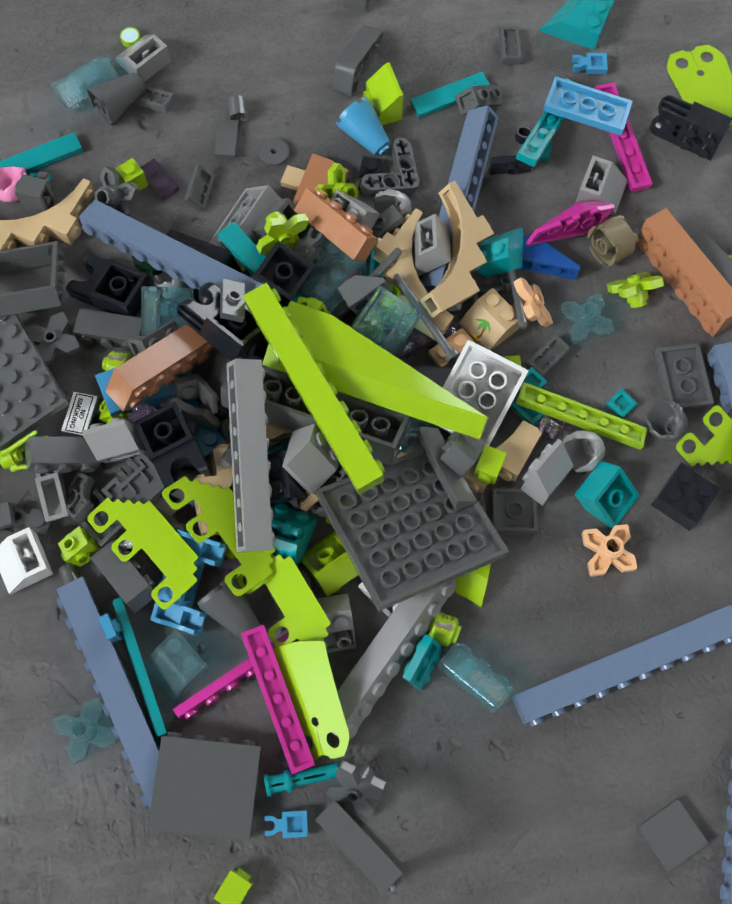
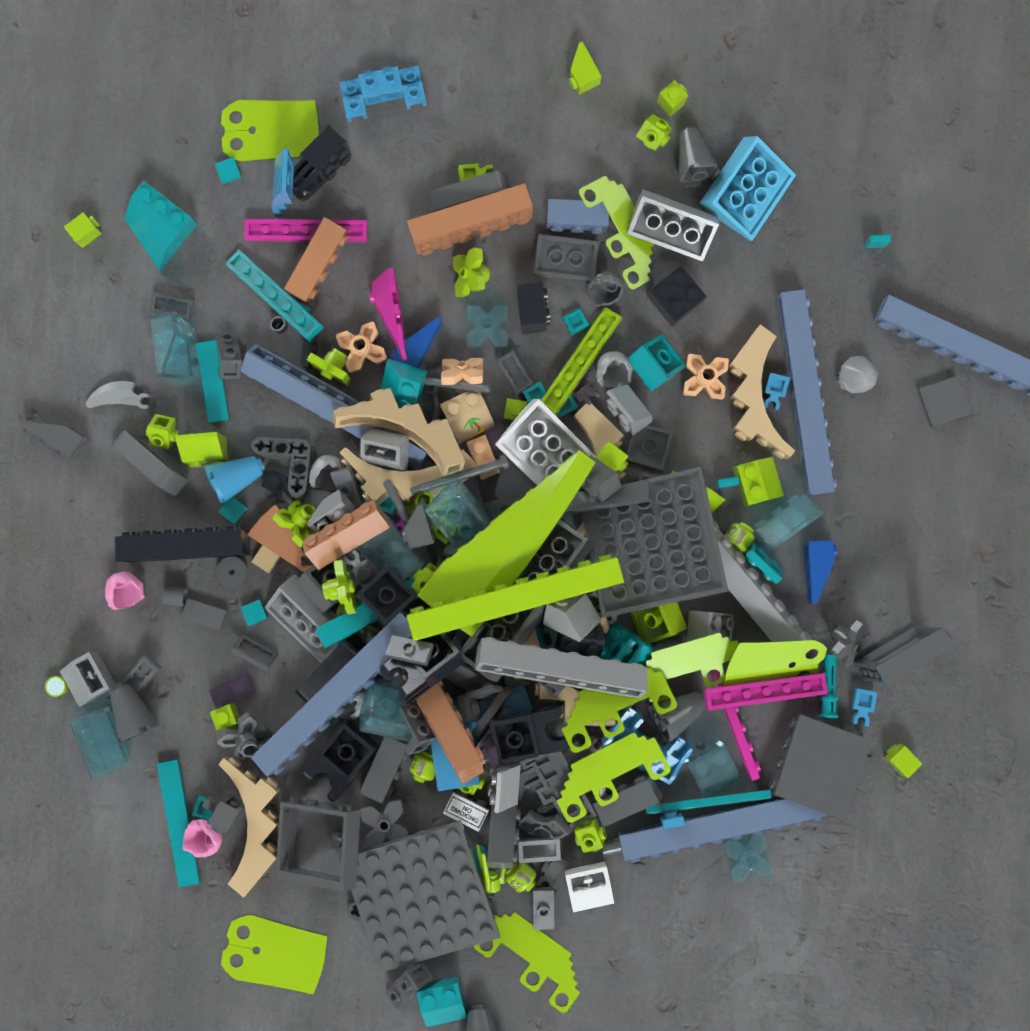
camera: 75 degrees left, 15 degrees up
(21, 487) = (521, 877): none -> lime head
(231, 65) = (123, 590): none -> bright pink hair
(238, 180) = (254, 612): none -> teal tile
(287, 100) = (187, 545): none -> black brick
(333, 139) = (233, 510): none -> teal tile
(391, 54) = (162, 431): none -> lime brick
(414, 21) = (117, 393): none -> light grey piece
(440, 728) = (818, 564): none -> blue slope
(470, 46) = (174, 349): none -> clear light blue slope
(498, 183) = (331, 365): none -> lime plant
(500, 601) = (727, 482): none -> teal tile
(512, 637) = (758, 481): none -> lime slope
(526, 209) = (352, 343): none -> light nougat plant
(582, 144) = (316, 260): none -> nougat brick
(588, 105) = (269, 254): dark azure plate -> none
(593, 63) = (216, 231): dark azure plate -> none
(602, 183) = (357, 268): light grey slope -> none
(612, 240) = (418, 278): dark tan brick -> none
(620, 352) = (532, 309): none -> black brick
(624, 630) = (776, 387): none -> dark azure plate
(638, 593) = (748, 395): none -> tan arch
(654, 61) = (228, 170): none -> teal tile
(660, 90) = (282, 182): none -> dark azure slope
(668, 720) = (857, 375): none -> light grey hair

